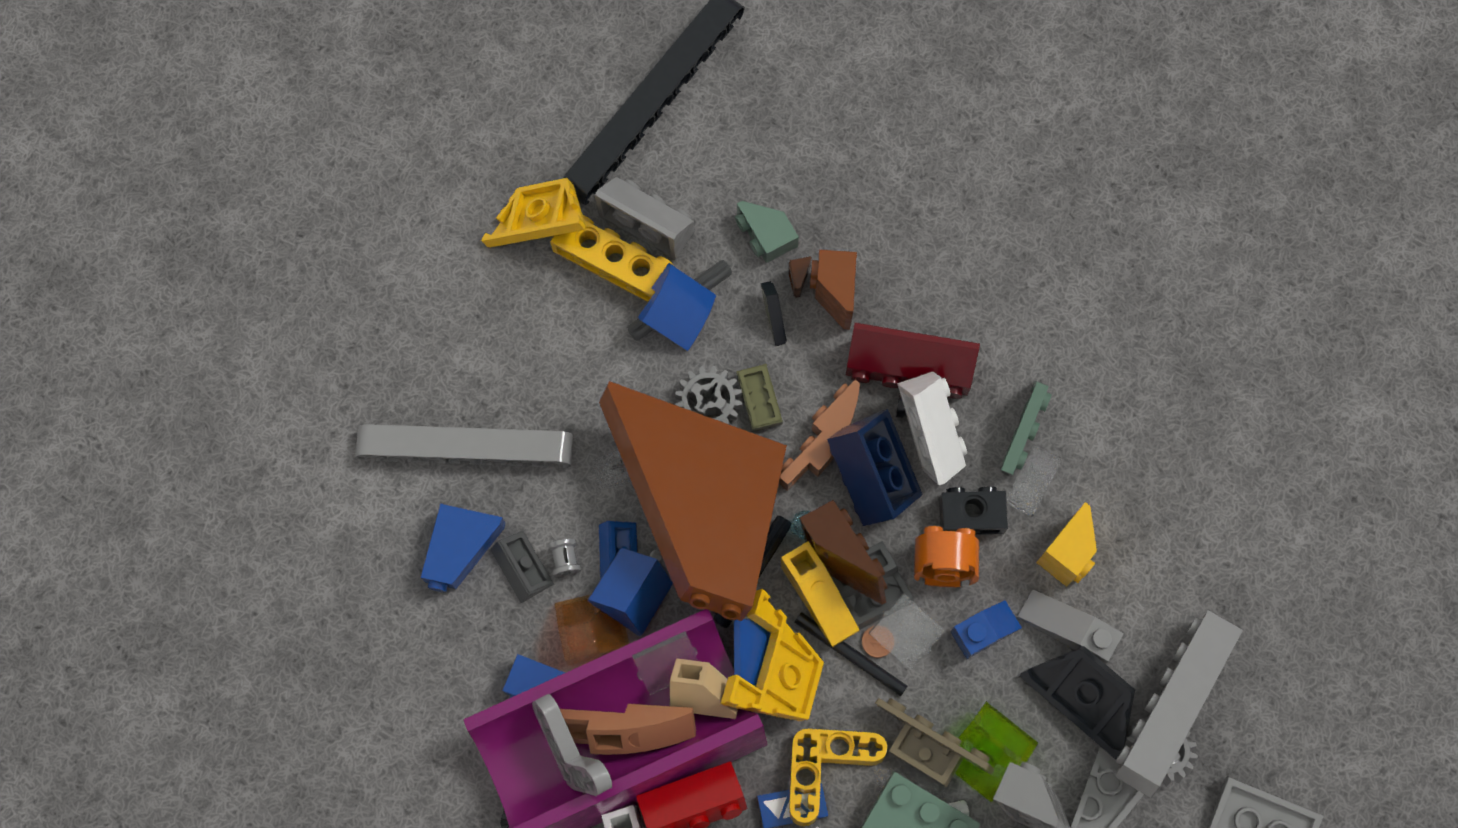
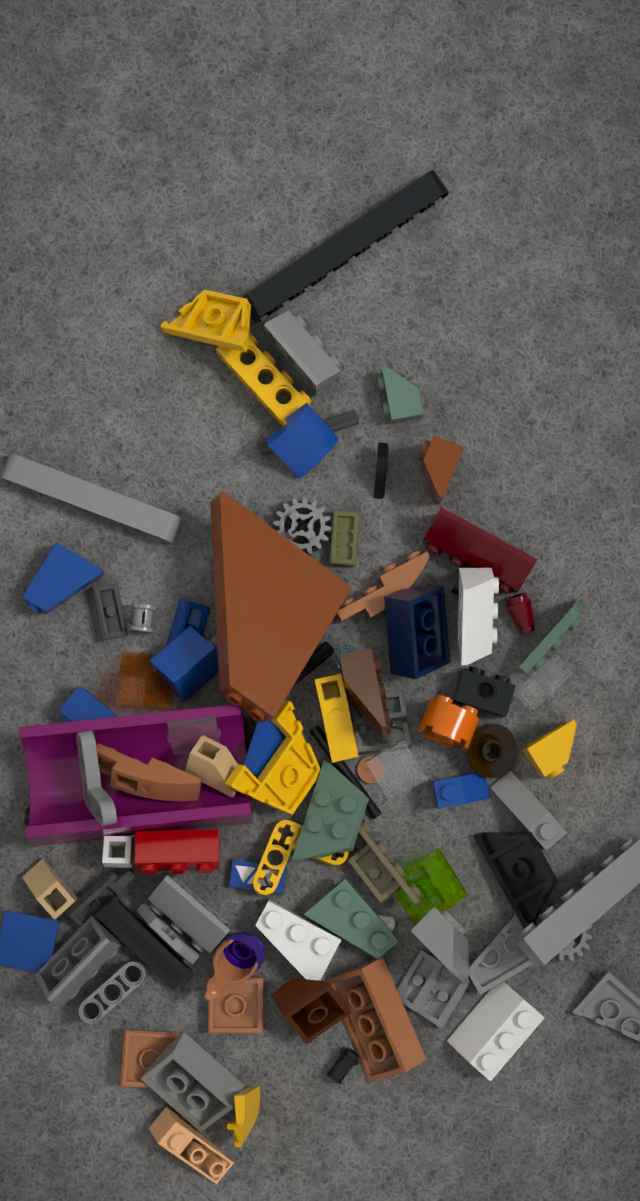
camera: 15 degrees right, 10 degrees up
(798, 272) = (412, 444): reddish brown slope -> none
(854, 706) = (332, 816): none -> sand green wing
(981, 413) = (521, 611): none -> dark red cone
(1016, 571) = (502, 750): none -> dark brown dish

